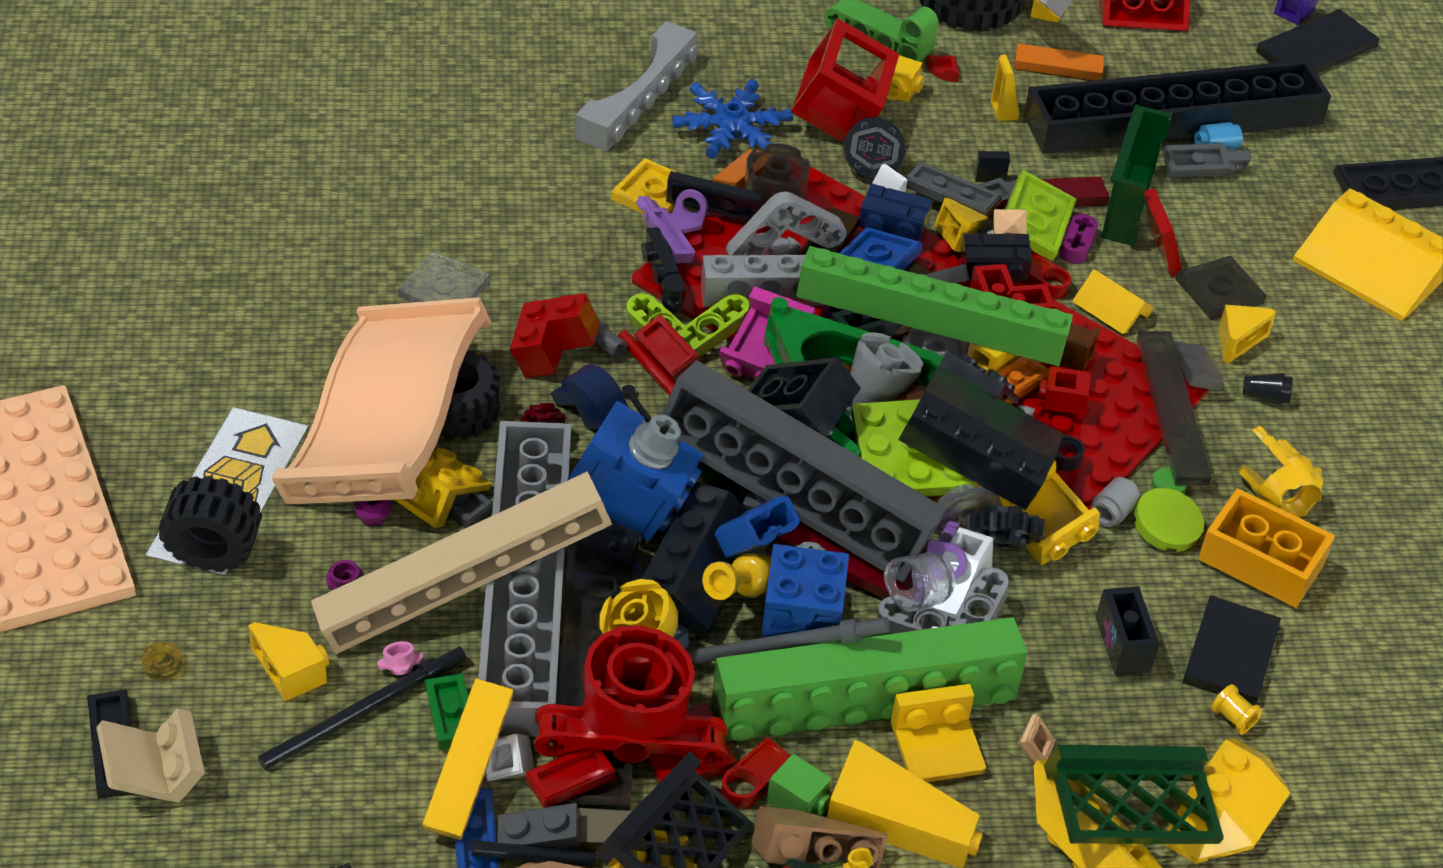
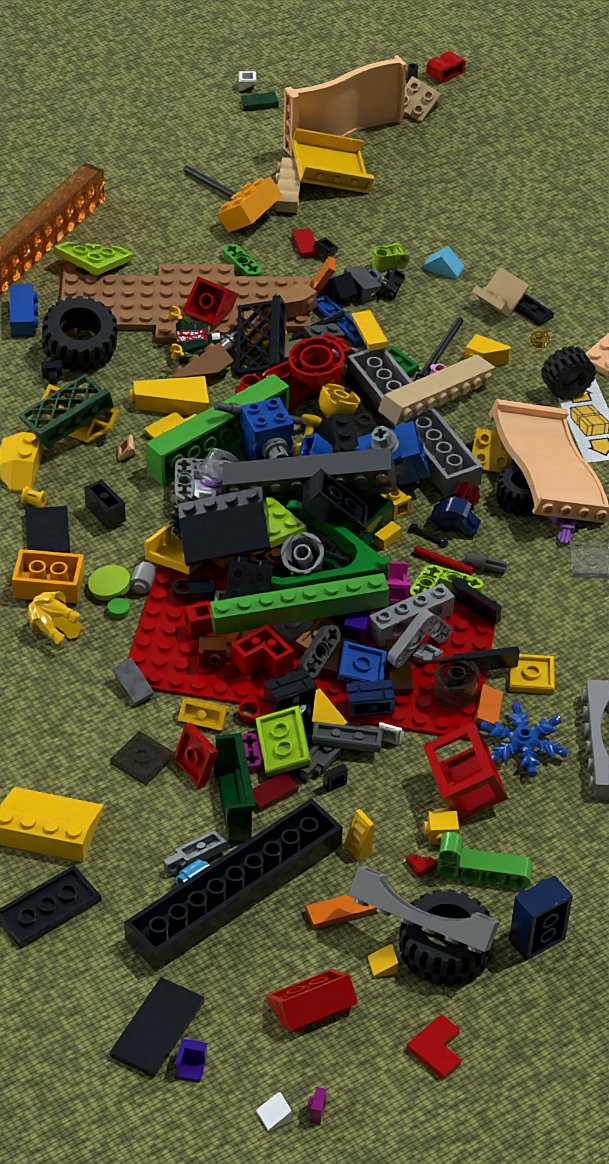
camera: 155 degrees right, 0 degrees up
(342, 573) = (493, 394): magenta plate -> none
(548, 329) = (504, 537): red brick -> none
(666, 347) = (438, 561): red tile -> none
(677, 223) = (496, 634): medium lavender piece -> none
(800, 787) = (222, 385): bright green brick -> none
(872, 145) = (414, 746): tile -> none
(1009, 221) = (290, 701): light nougat slope -> none
(1173, 408) = (136, 645): clear smoke tile -> none
(1243, 328) = (115, 720): yellow slope -> none
(1269, 387) = (83, 689): black cone -> none

